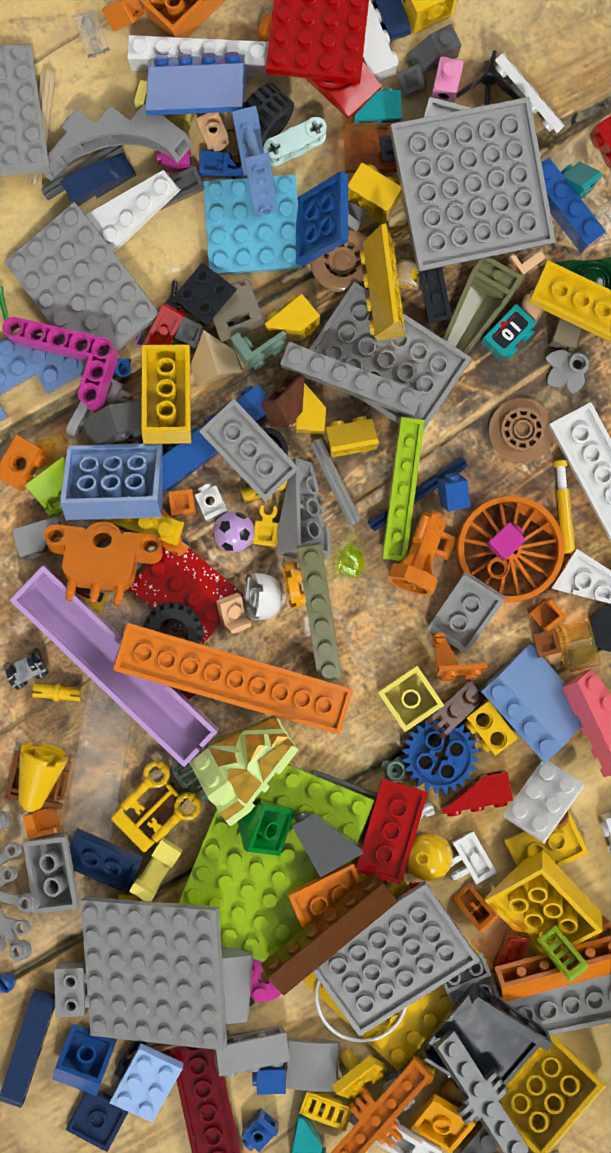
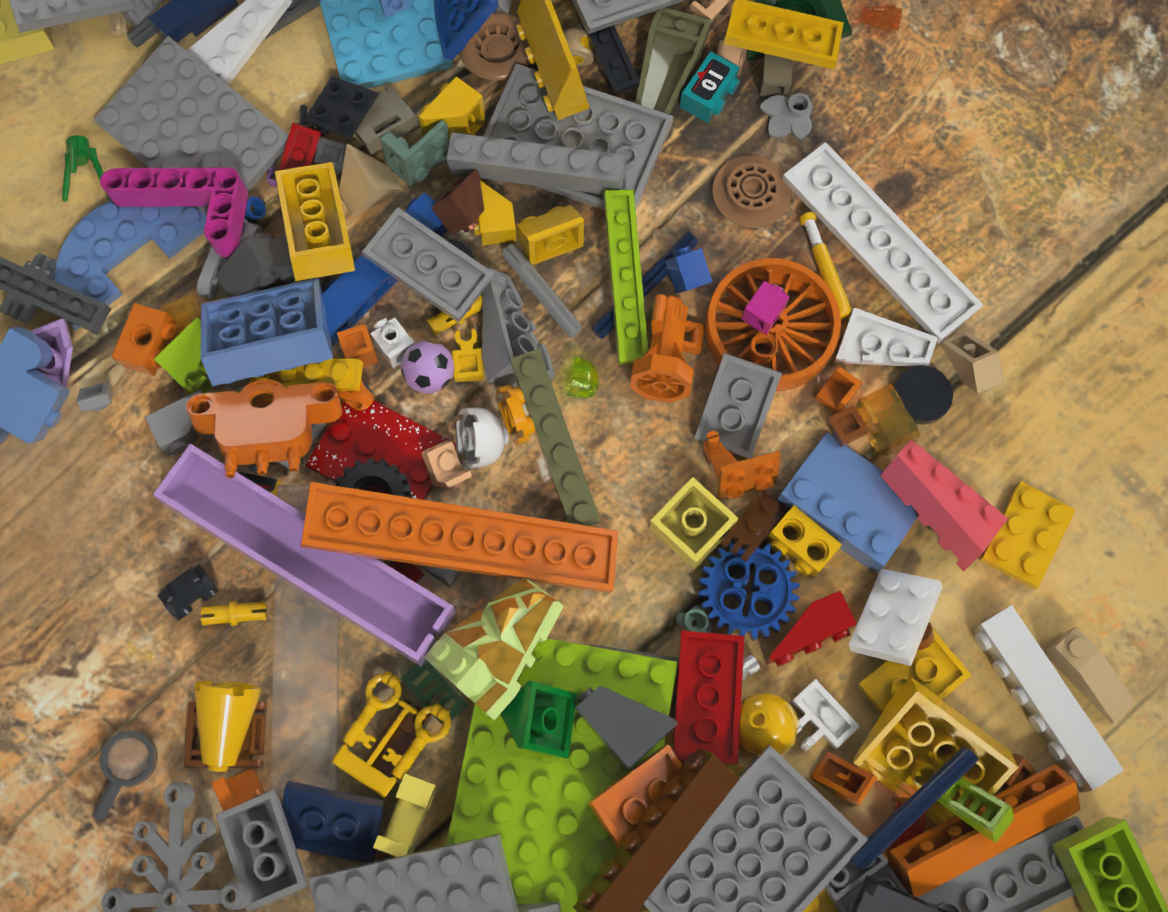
camera: 15 degrees left, 15 degrees down
(520, 944) = (914, 807): none -> dark blue axle

